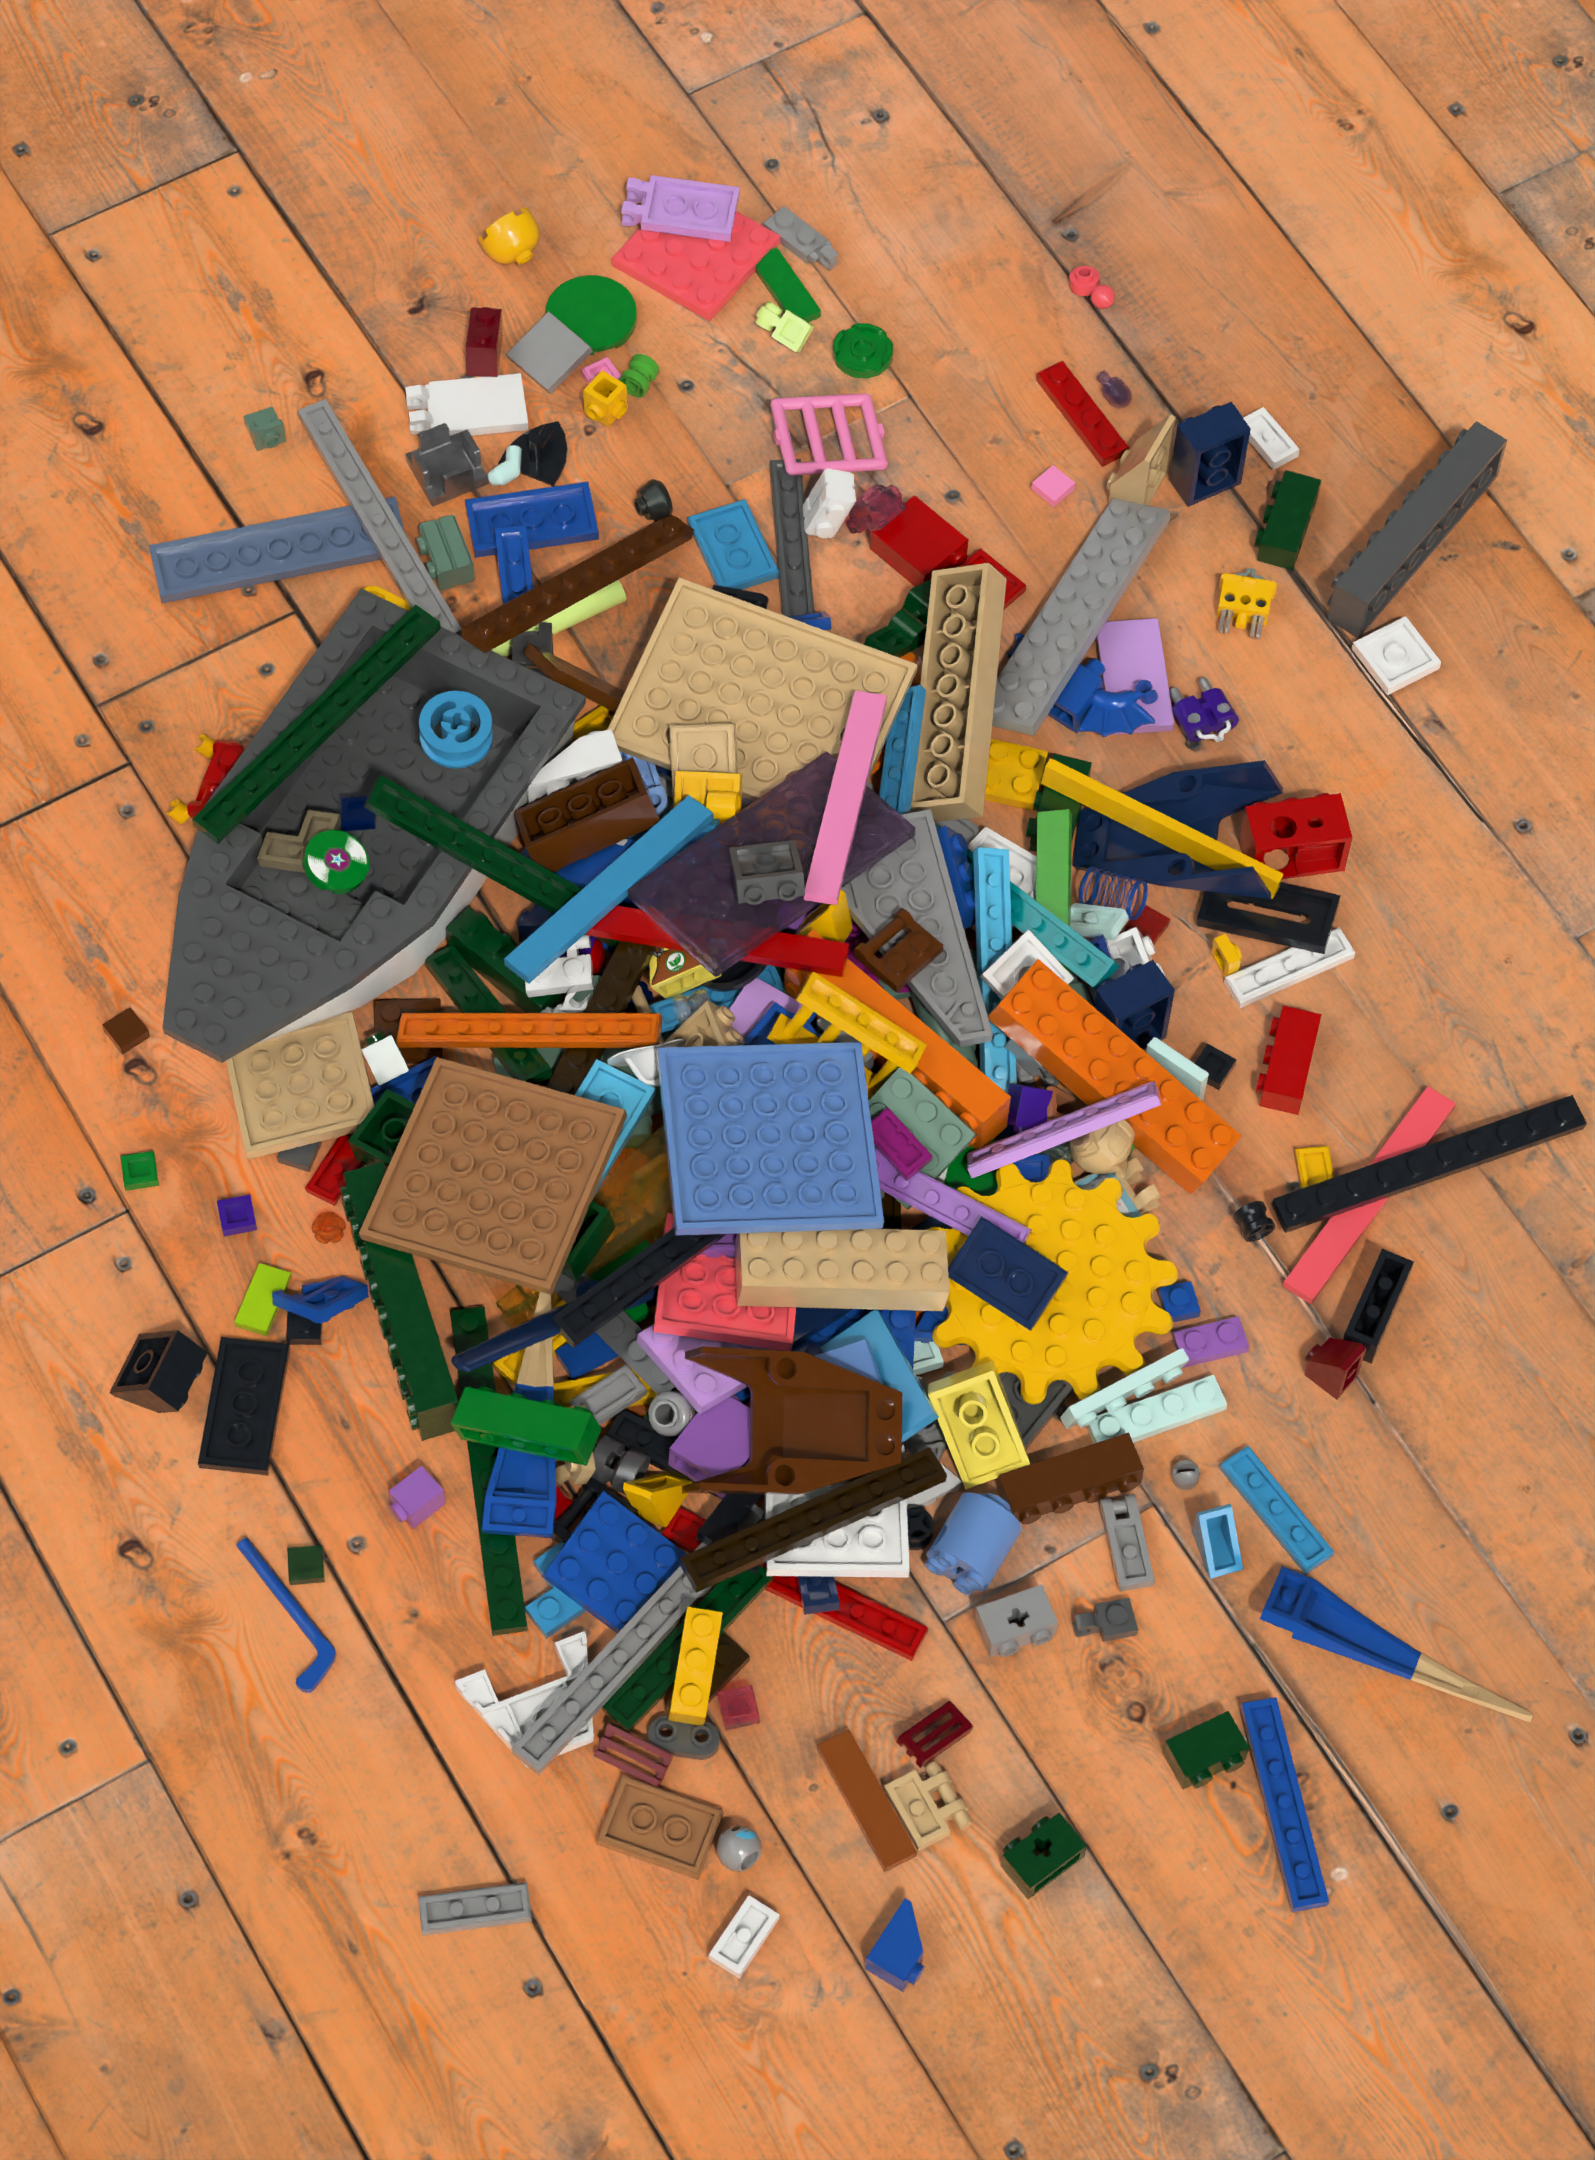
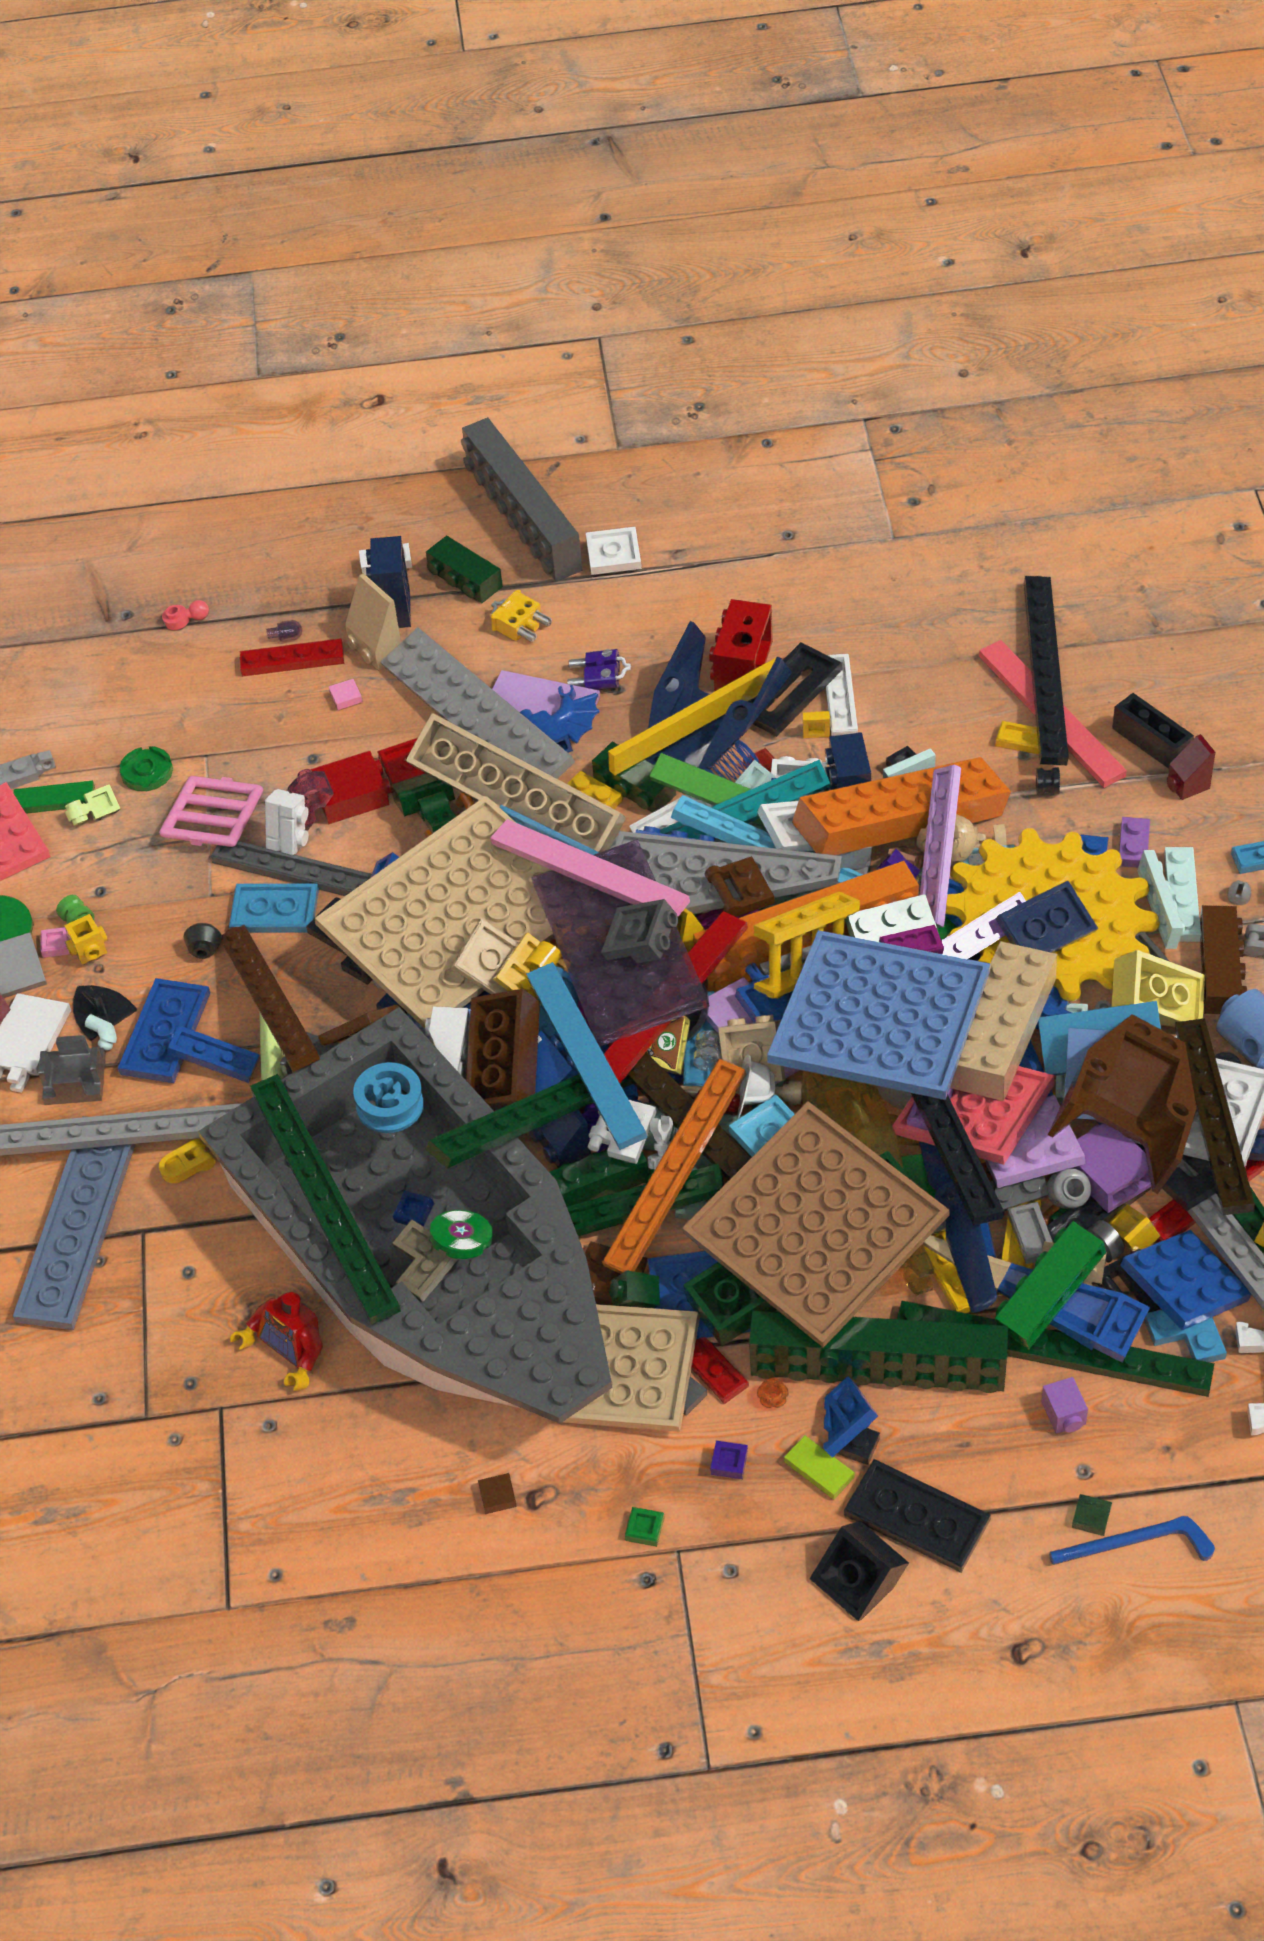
camera: 60 degrees left, 10 degrees down
(446, 552) = (159, 1094): sand green brick -> none
(1288, 1059) = (922, 716): red brick -> none

